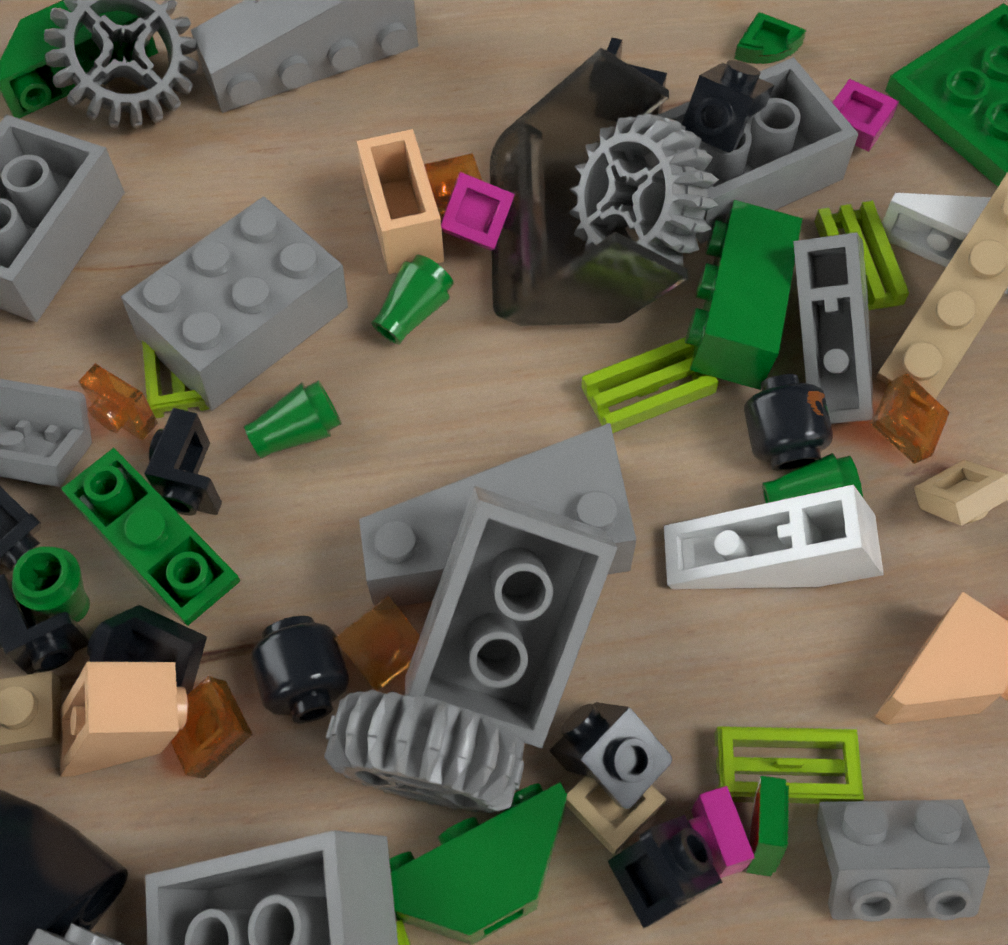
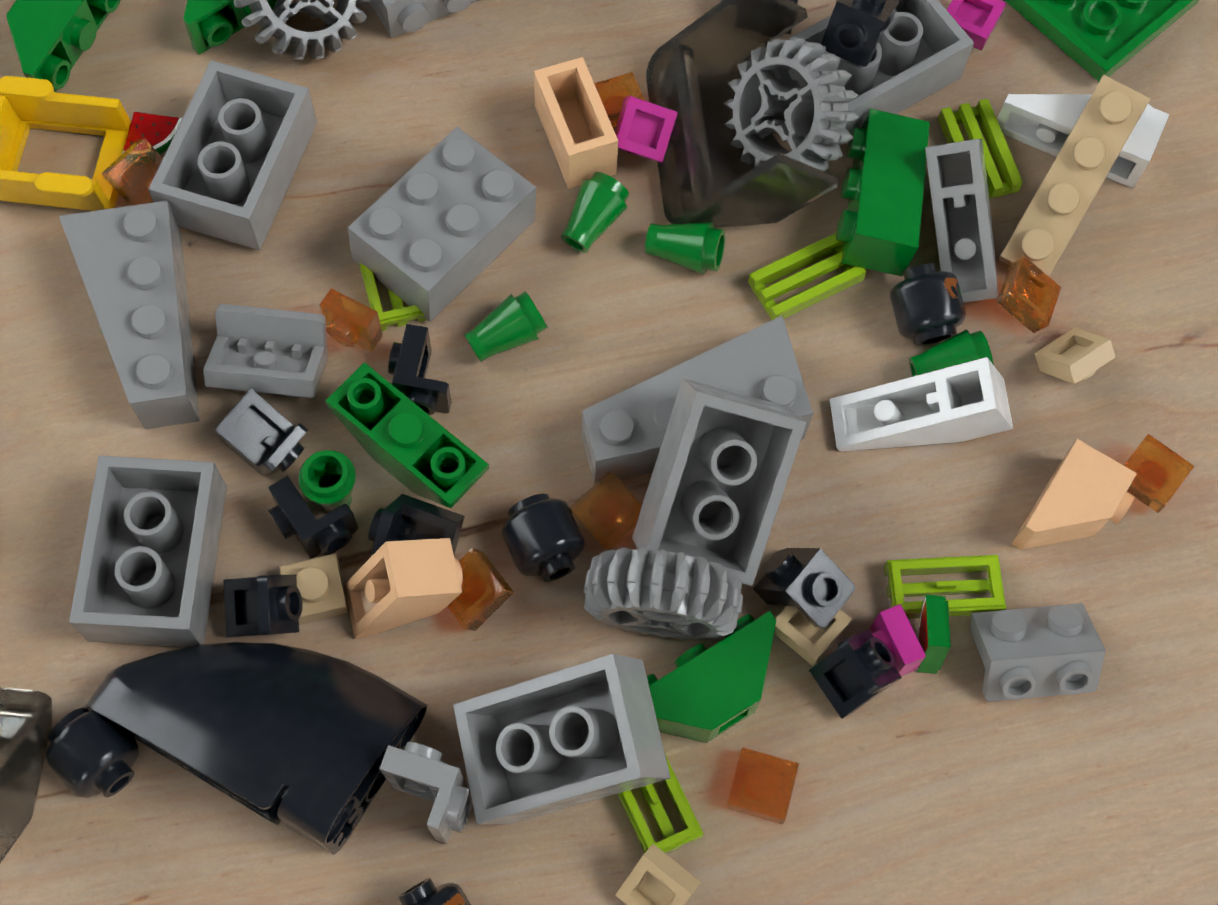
camera: 10 degrees left, 5 degrees up
(517, 341) = (688, 245): none -> green cone

